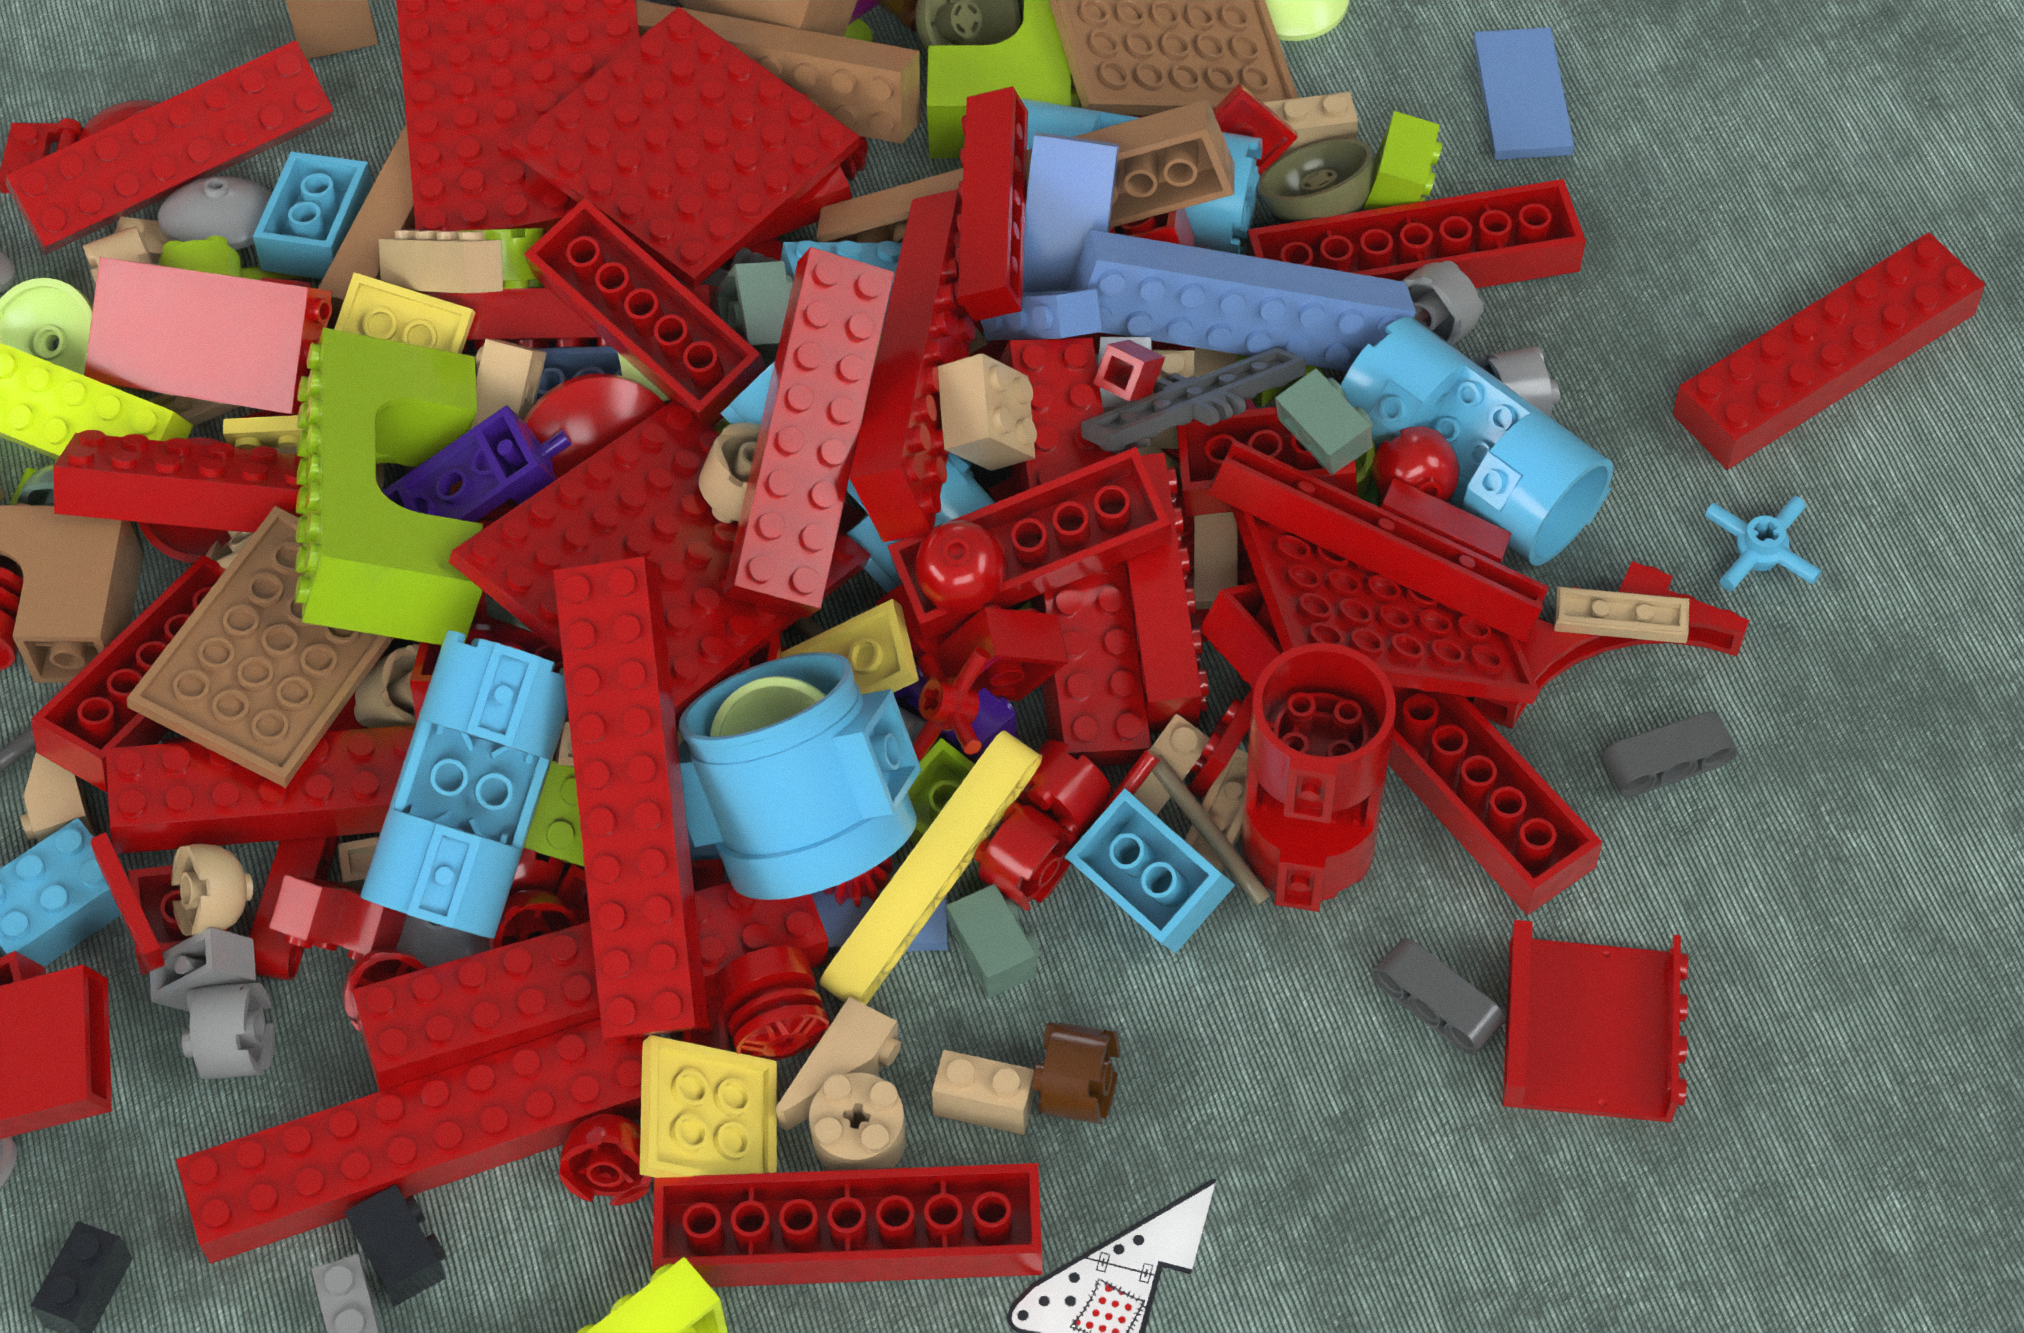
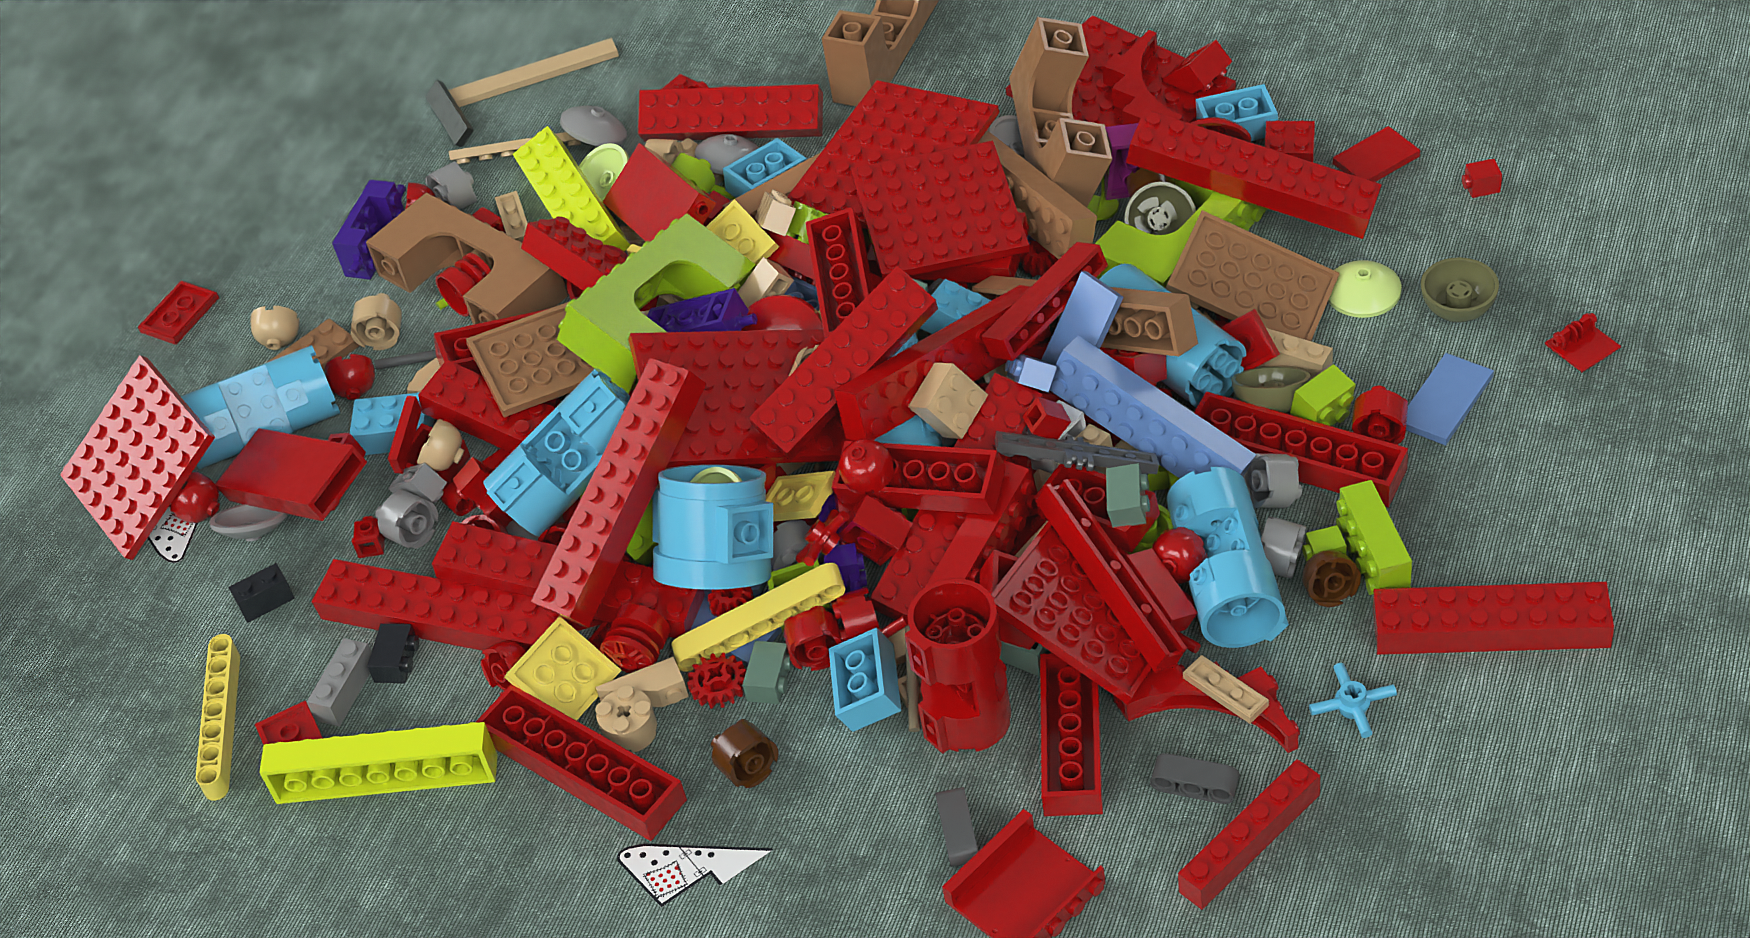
camera: 45 degrees right, 10 degrees down
(178, 1093) = (367, 532): none -> red brick
(952, 982) = (716, 680): none -> red gear
(983, 1092) = (693, 737): tan brick -> none
(1485, 154) = (1380, 415): none -> red brick
(1566, 359) = (1322, 540): none -> lime brick
(1602, 398) = (1330, 578): none -> reddish brown cylinder
(1622, 323) = (1373, 538): none -> lime brick
(1799, 786) = (1249, 834): none -> red brick

